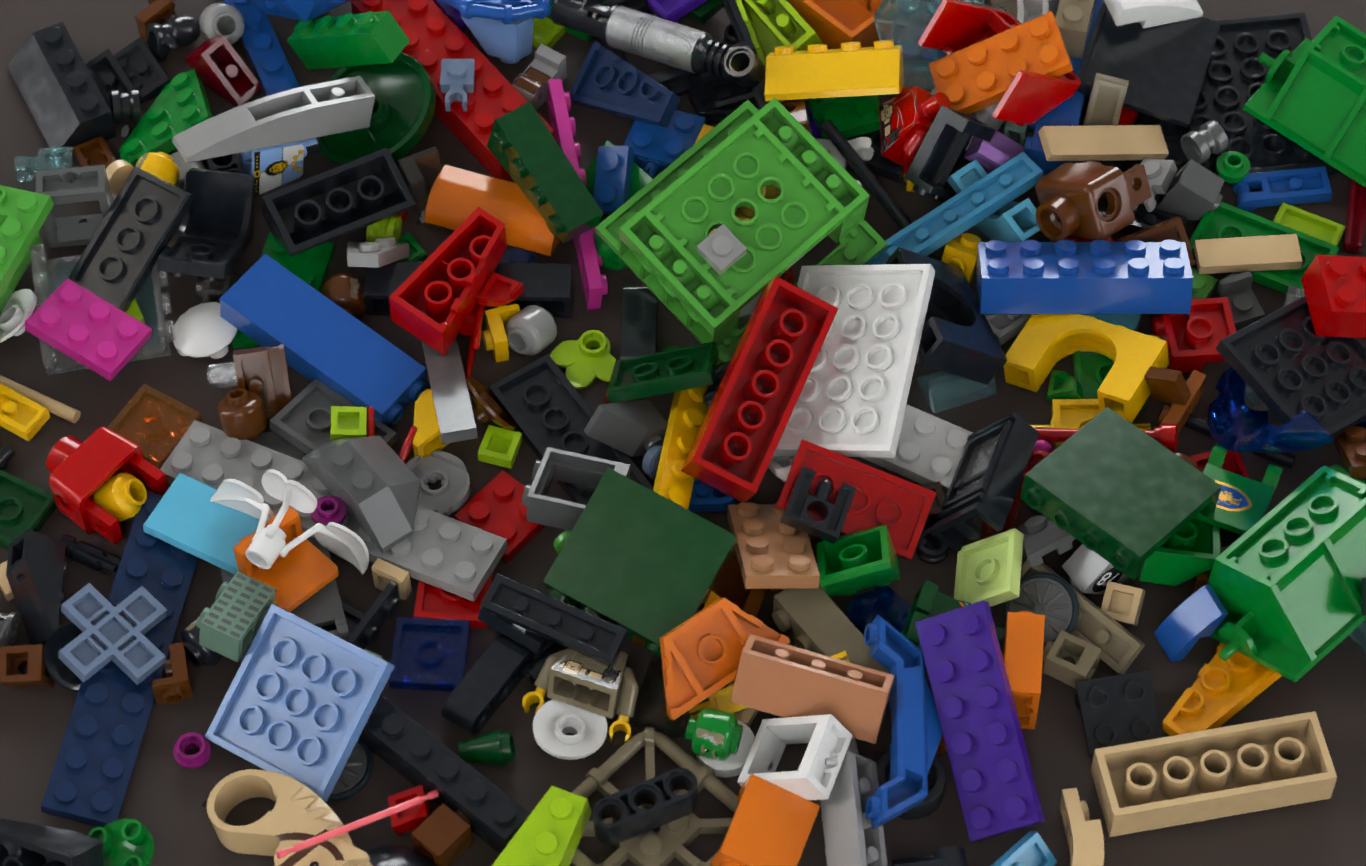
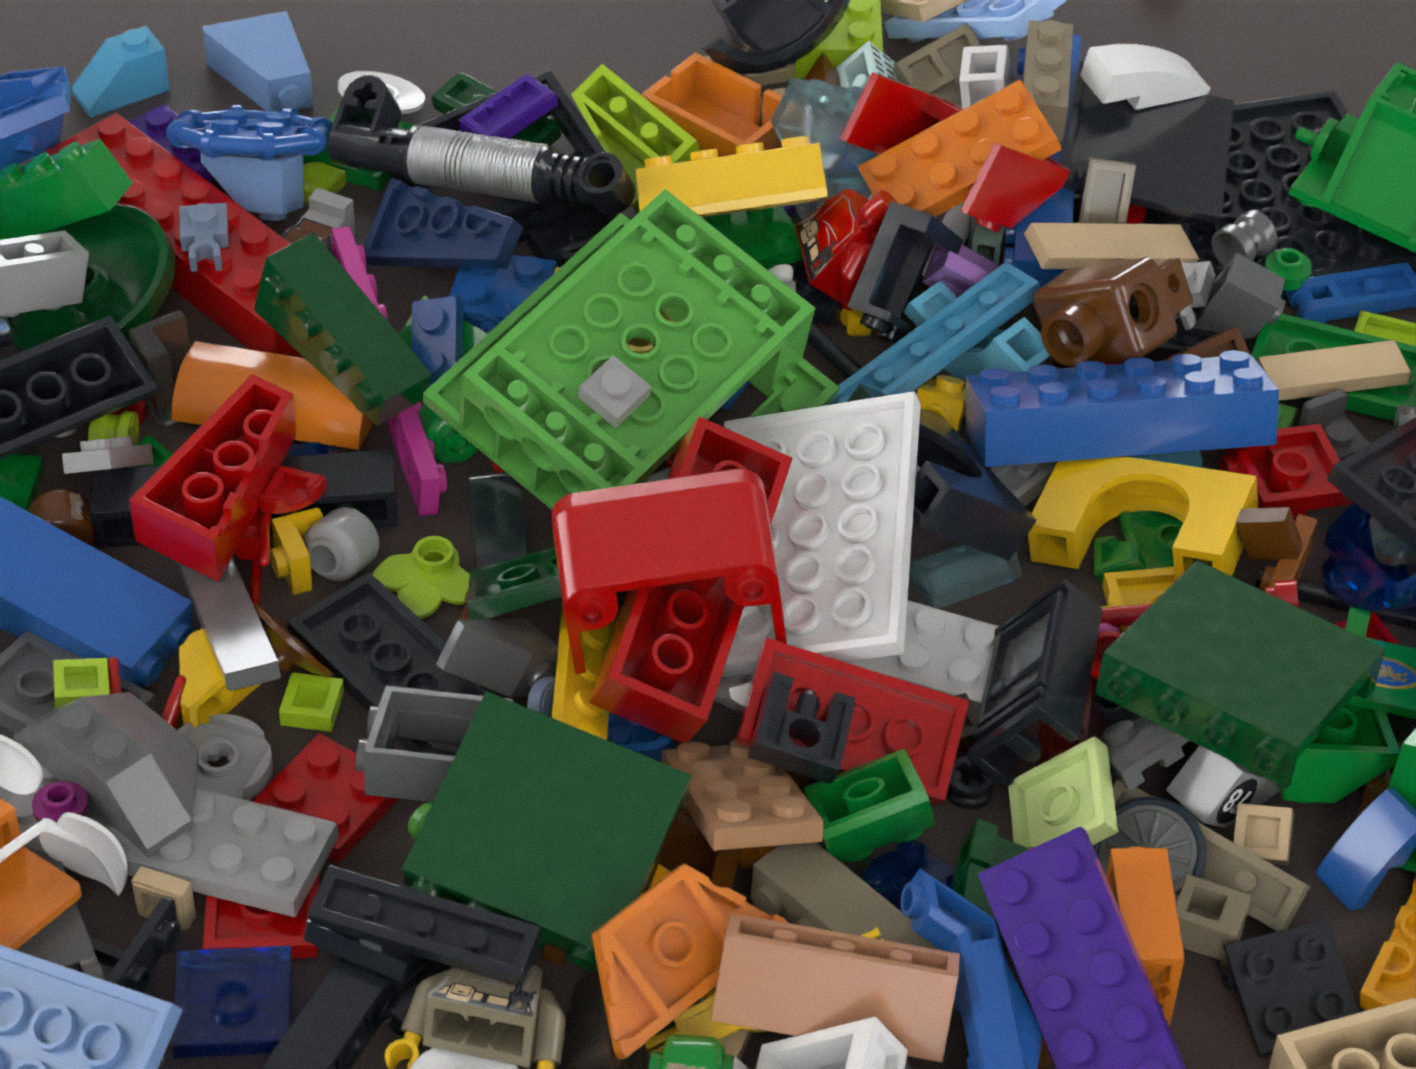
camera: 10 degrees left, 10 degrees down
(740, 367) = (663, 537): none -> red windscreen

